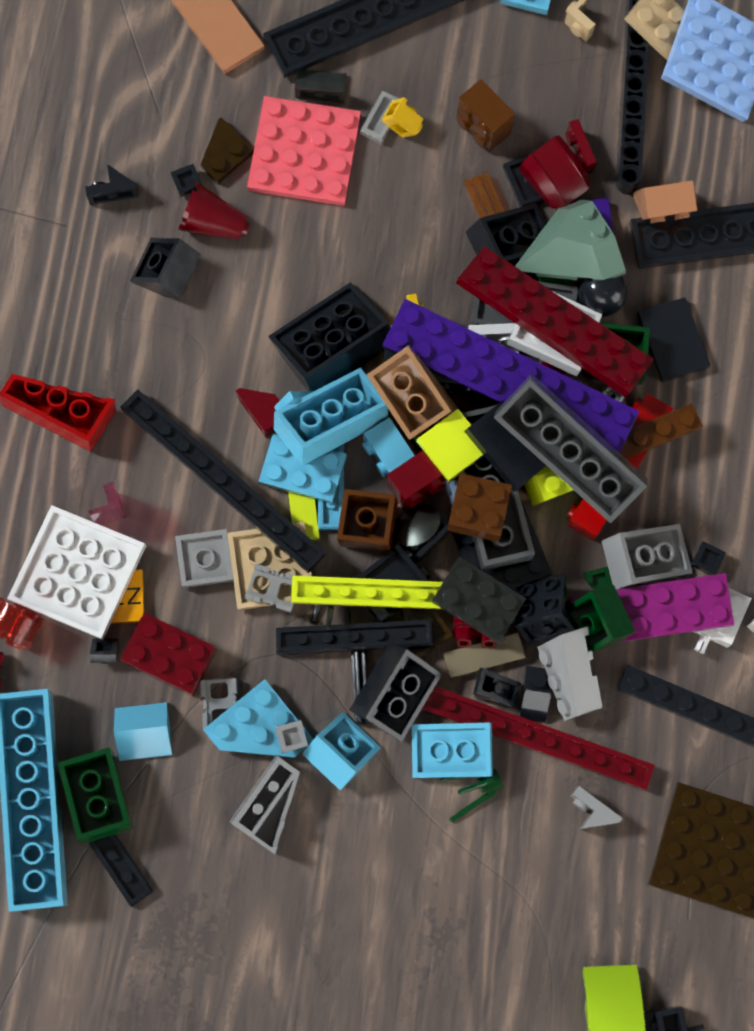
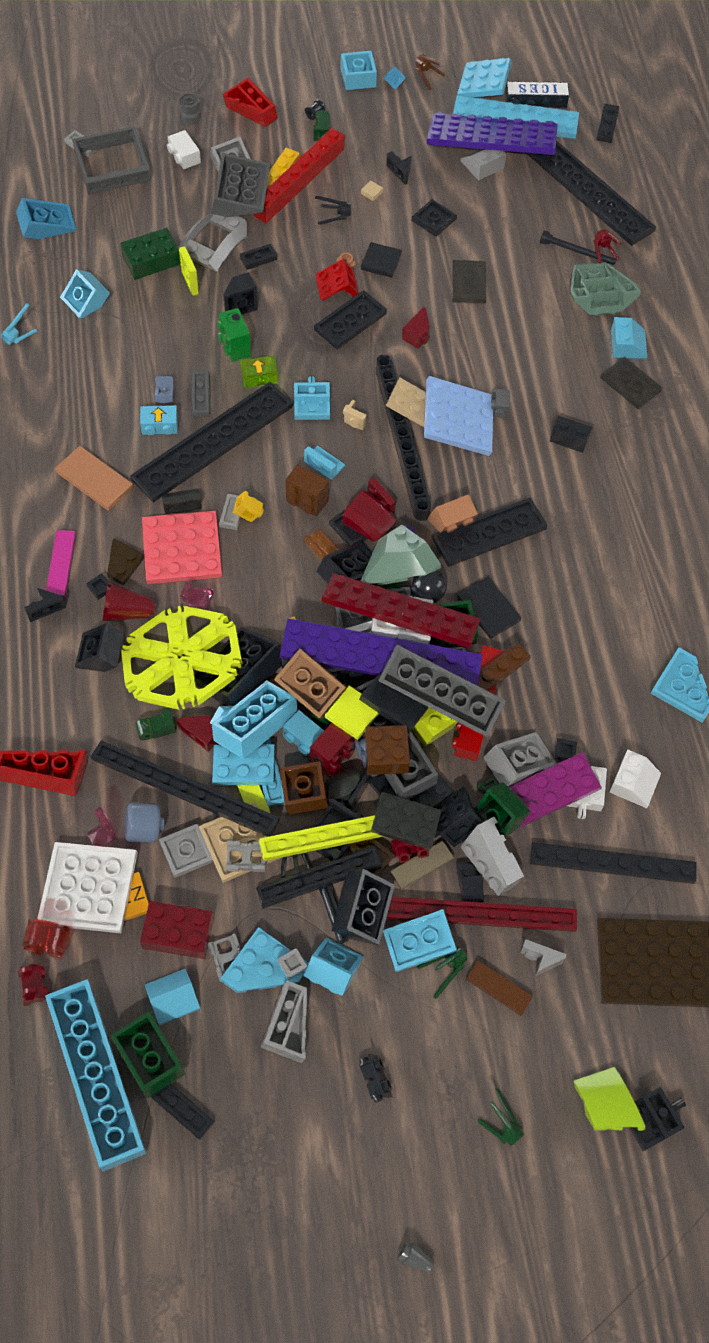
camera: 15 degrees left, 15 degrees down
(104, 651) = (125, 941): black plate -> none
(146, 134) = (61, 562): none -> dark pink tile
(161, 510) = (143, 822): none -> sand blue head
(209, 388) = (155, 726): none -> dark green leg
(261, 322) = (183, 669): none -> neon yellow plate
(304, 226) = (196, 597): none -> clear pink bracket
(355, 908) = (373, 1069): none -> black hinge
(489, 1004) = (512, 1130): none -> dark green plant
(496, 688) = (439, 885): black slope -> none
(520, 75) = (323, 461): none -> medium azure panel
(530, 832) = (499, 988): none -> reddish brown tile

